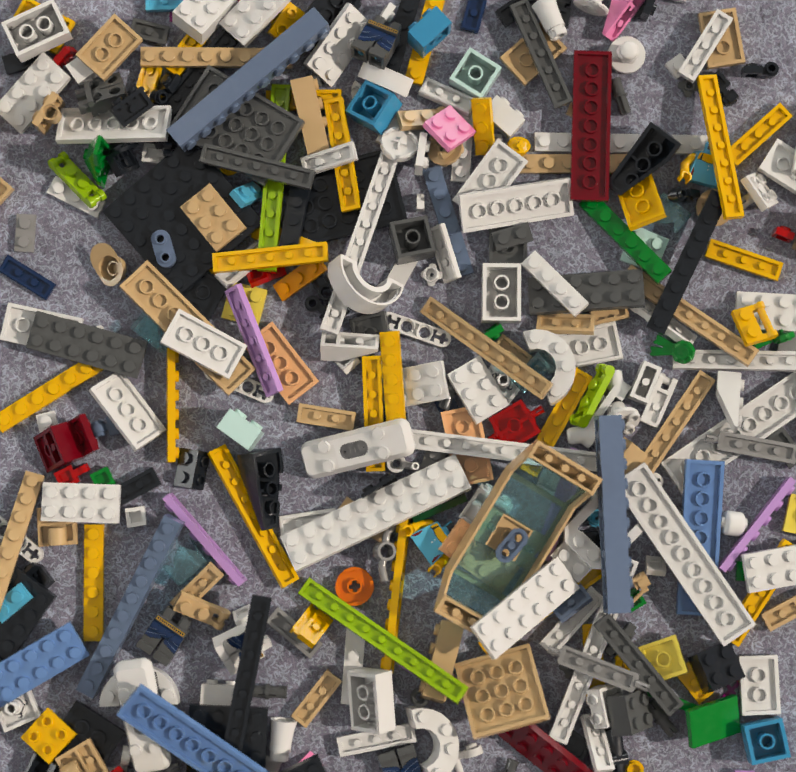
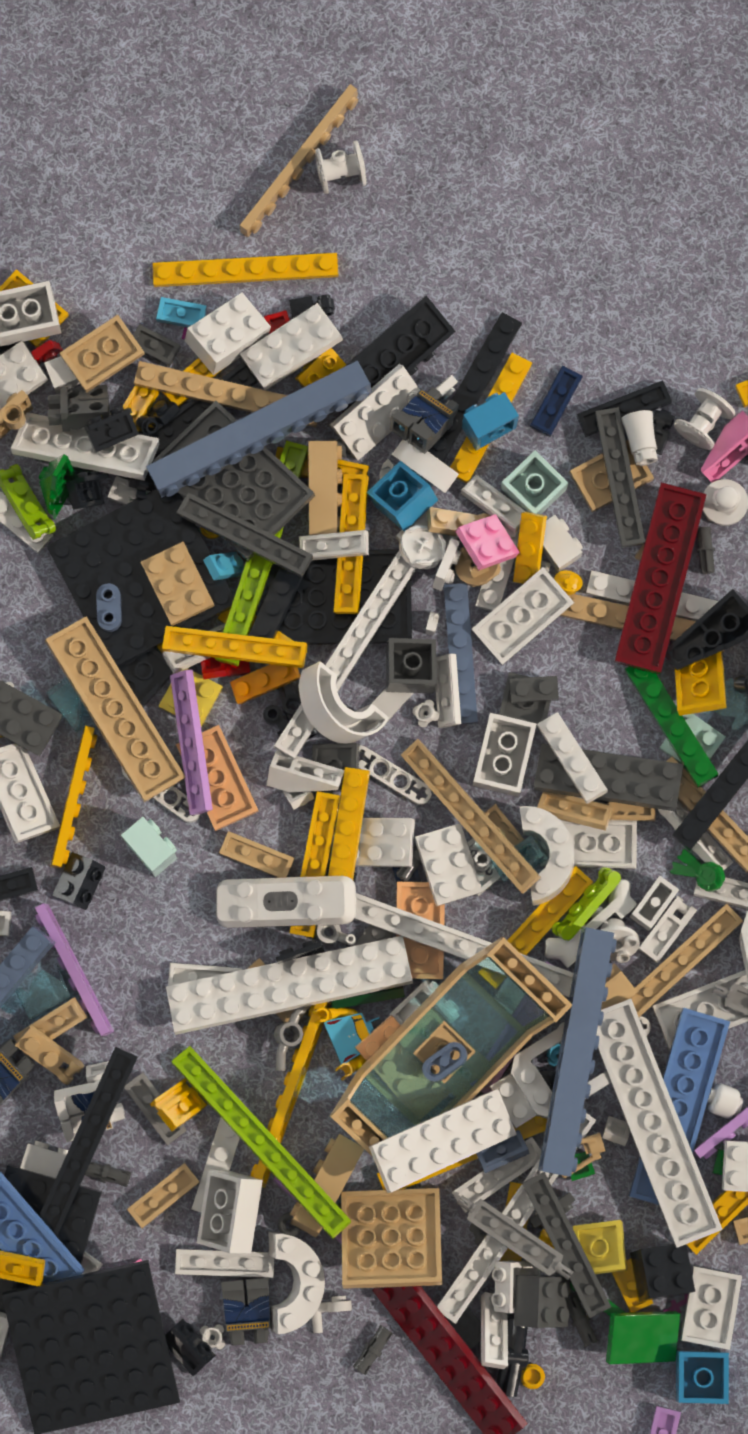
camera: 15 degrees right, 5 degrees down
(107, 264) = (37, 611): tan piece -> none
(203, 344) = (129, 732): white plate -> none
(262, 482) = (160, 916): black wedge -> none
(266, 540) = (139, 955): yellow plate -> none
(281, 738) = (108, 1234): white plant -> none
(363, 592) = (252, 1060): orange plate -> none
(494, 331) = (485, 799): green plate -> none
(515, 204) = (546, 652): white plate -> none
(515, 423) = (486, 916): red plate -> none

